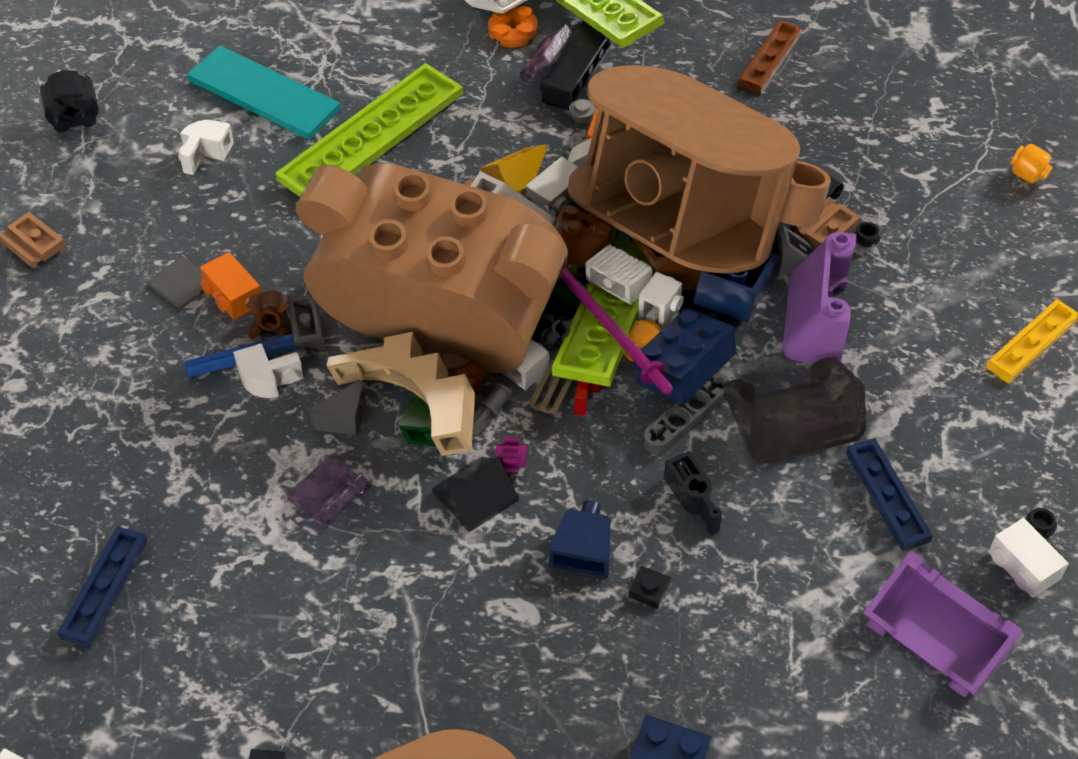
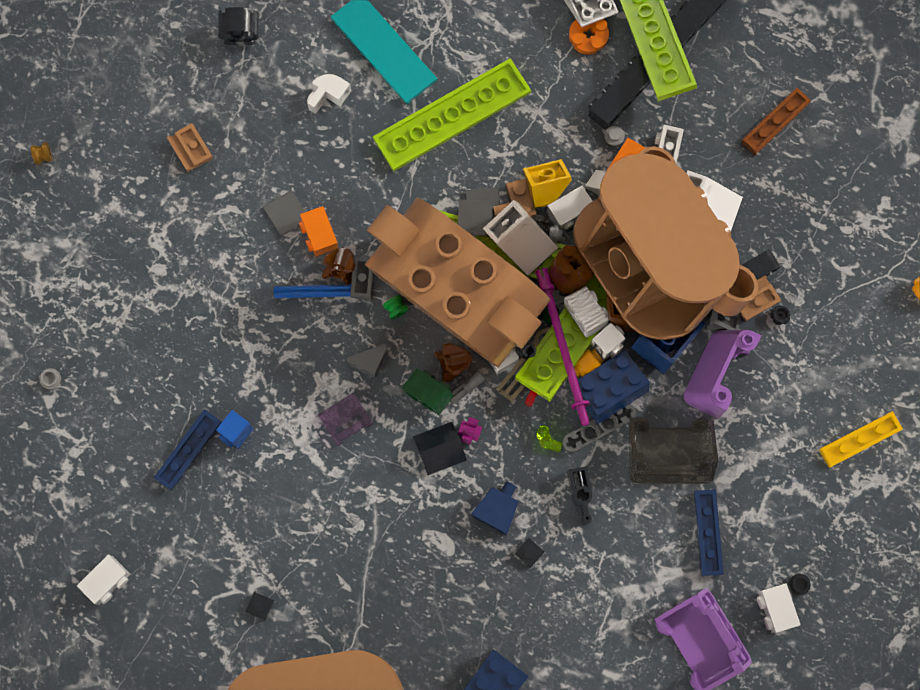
camera: 15 degrees right, 25 degrees up
(168, 534) = (234, 430): none -> blue brick
(264, 376) = (322, 314): white brick -> none
(358, 339) = (395, 307): none -> green wheel
(402, 363) = (436, 387): tan arch -> none
(546, 53) = (604, 76): clear purple plate -> none
(620, 445) = (545, 439): none -> clear neon green arm

